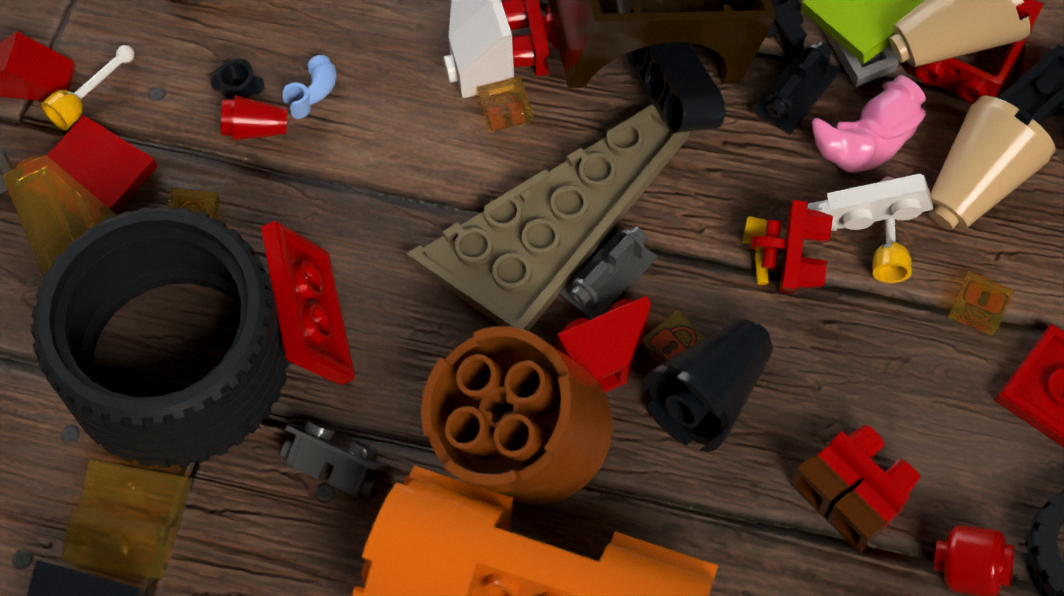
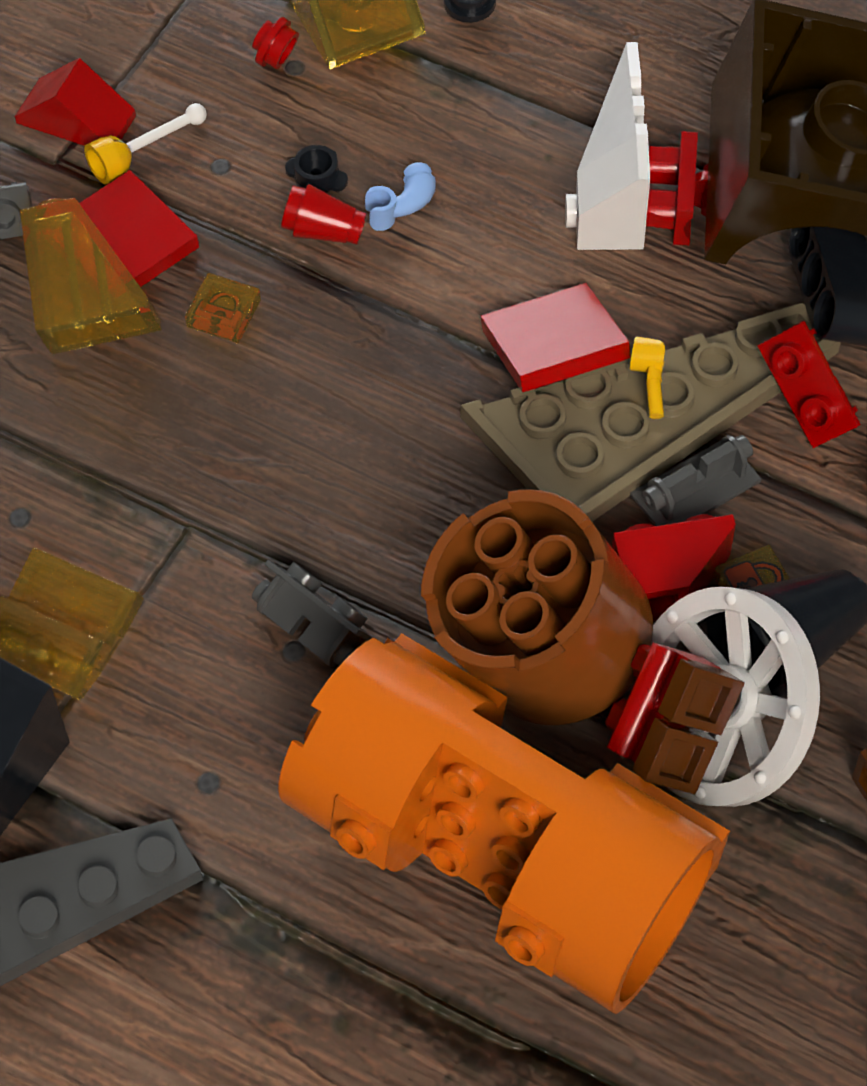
camera: 15 degrees right, 5 degrees down
(124, 261) = (137, 334): black tyre -> none
(307, 304) = (329, 432): red tile -> none
(466, 178) = (555, 337): none -> tile
(504, 104) = (626, 266): clear yellow tile -> none
(546, 179) = (649, 358): none -> yellow hand
(647, 480) = (668, 715): none -> reddish brown hips
(675, 171) = (809, 384): none -> red hinge
(678, 455) = (799, 710): none -> white wheel

